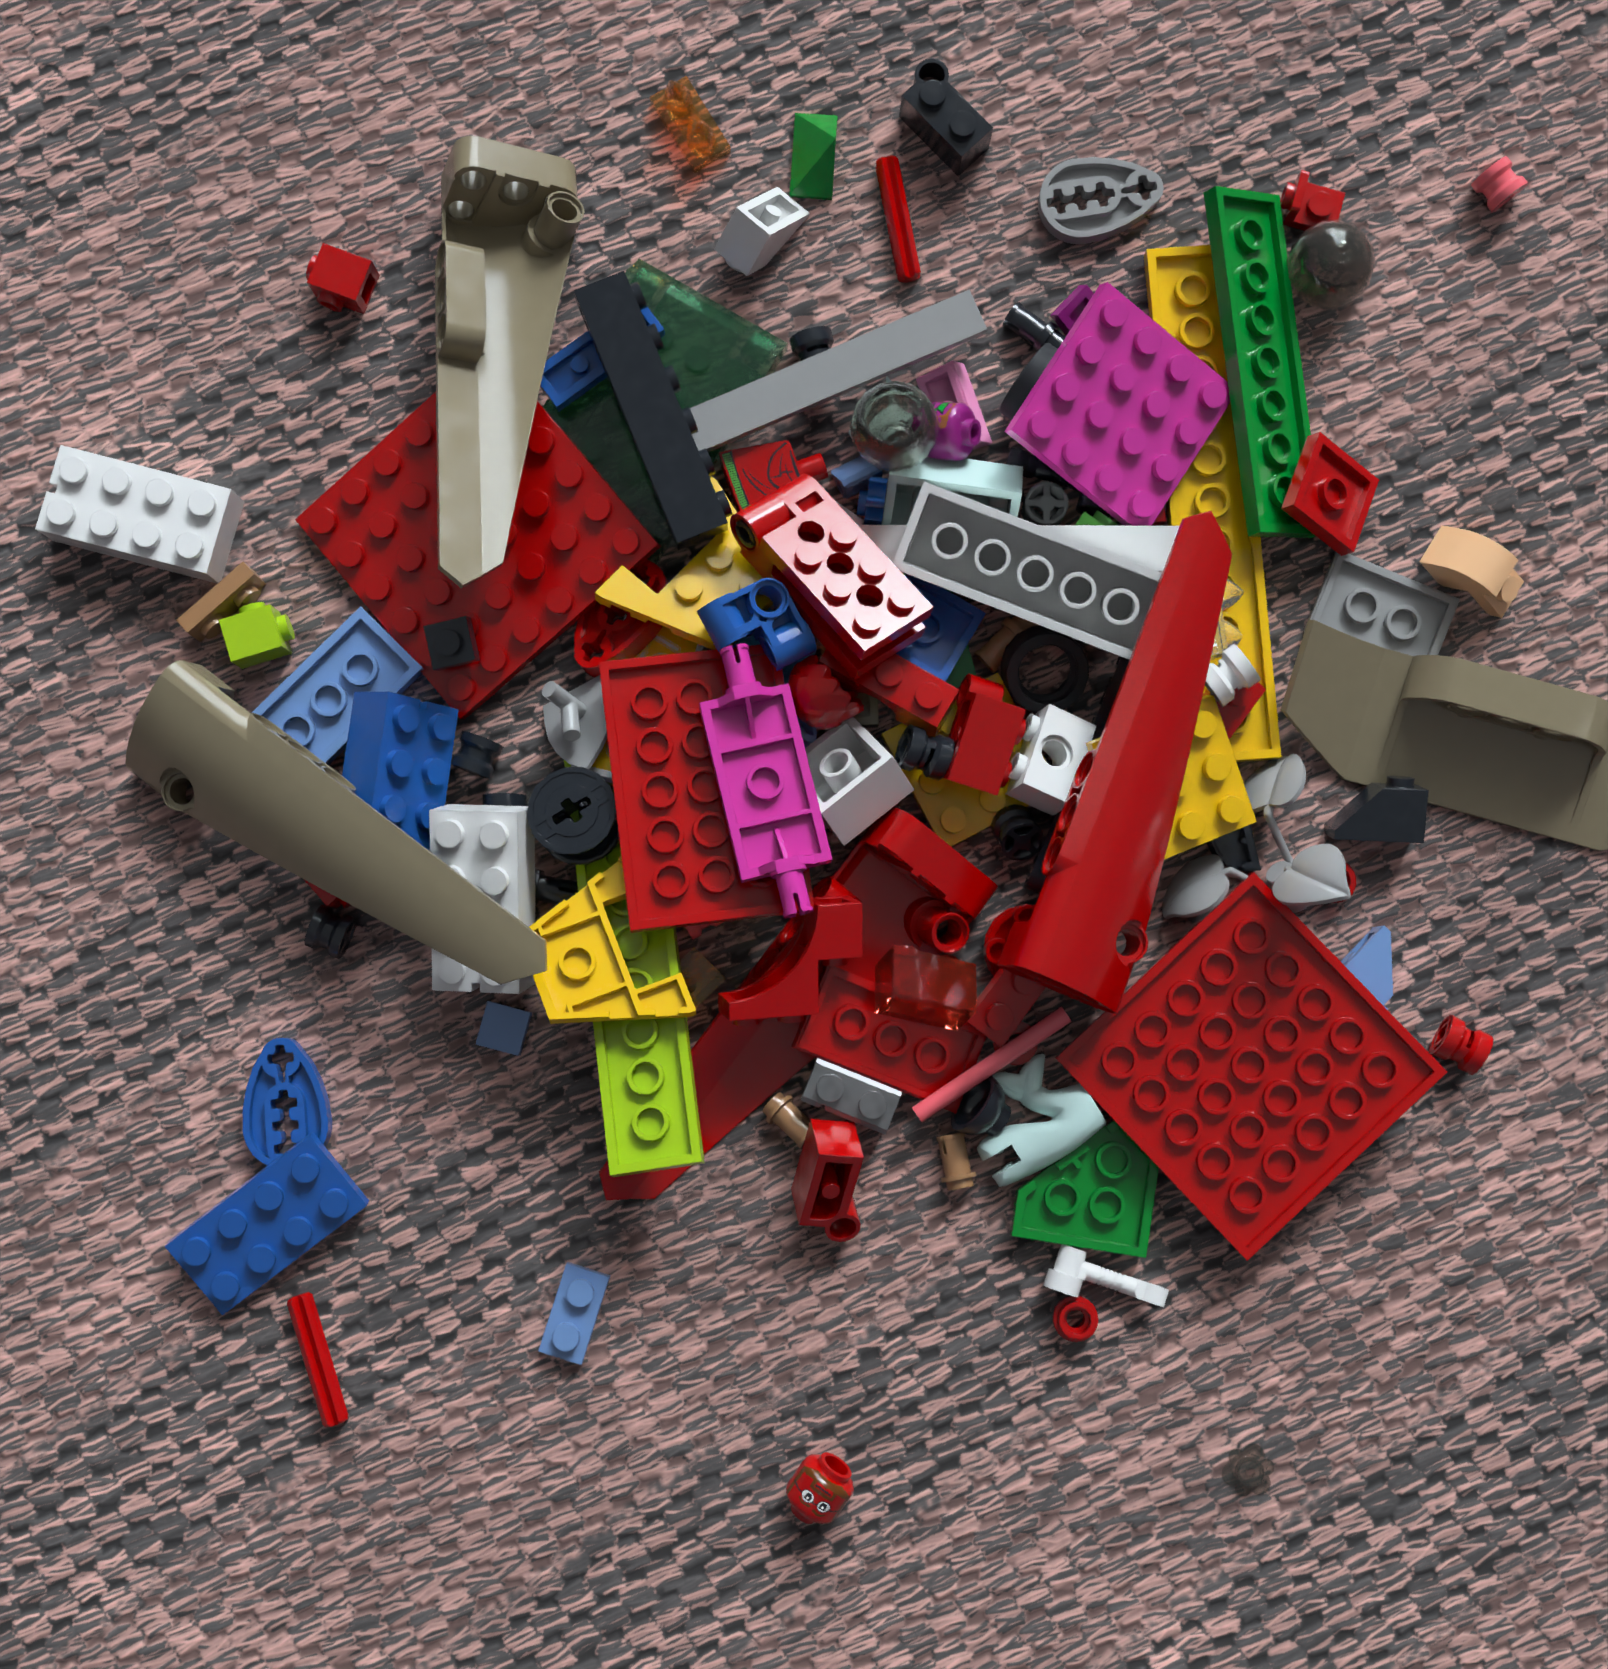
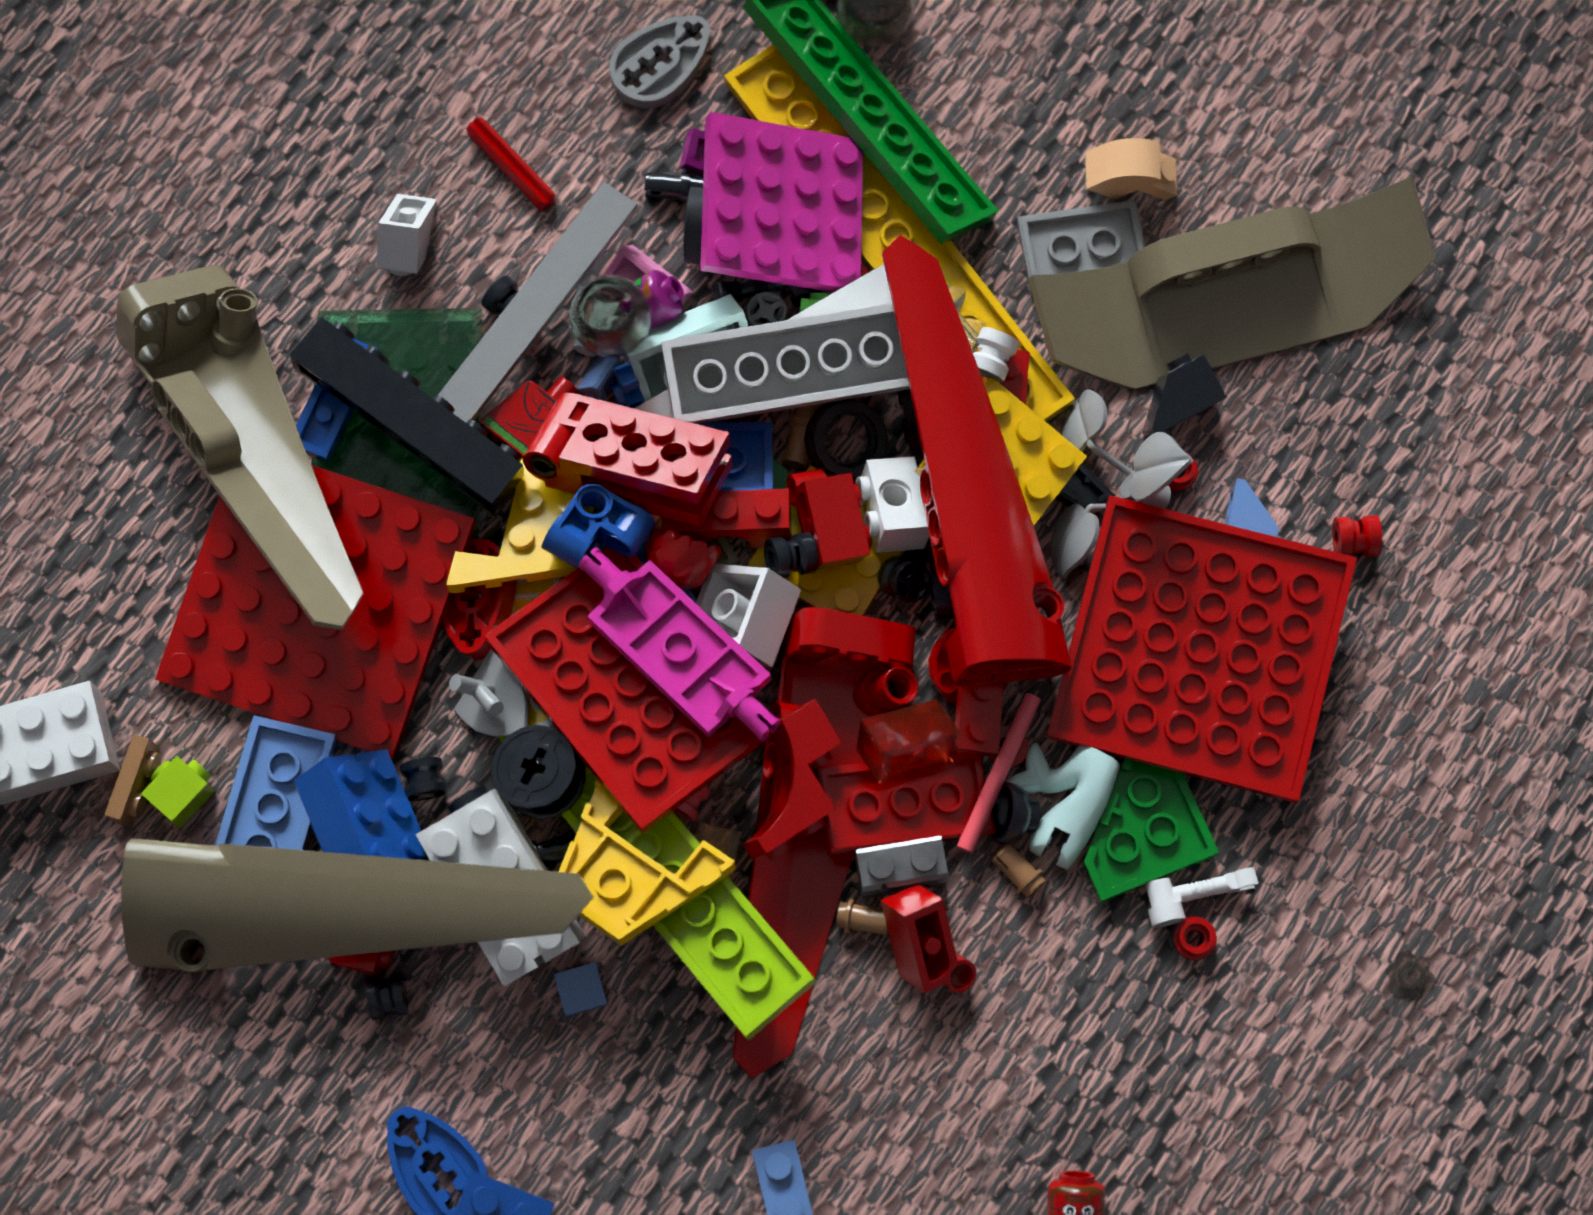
camera: 30 degrees left, 10 degrees down
(341, 279) = (80, 464): red brick -> none
(451, 643) = (349, 698): black plate -> none
(690, 124) = (297, 185): clear orange tile -> none
(813, 156) = (413, 153): green slope -> none
(944, 118) = (501, 66): black hinge -> none
(1330, 494) = (984, 177): red plate -> none

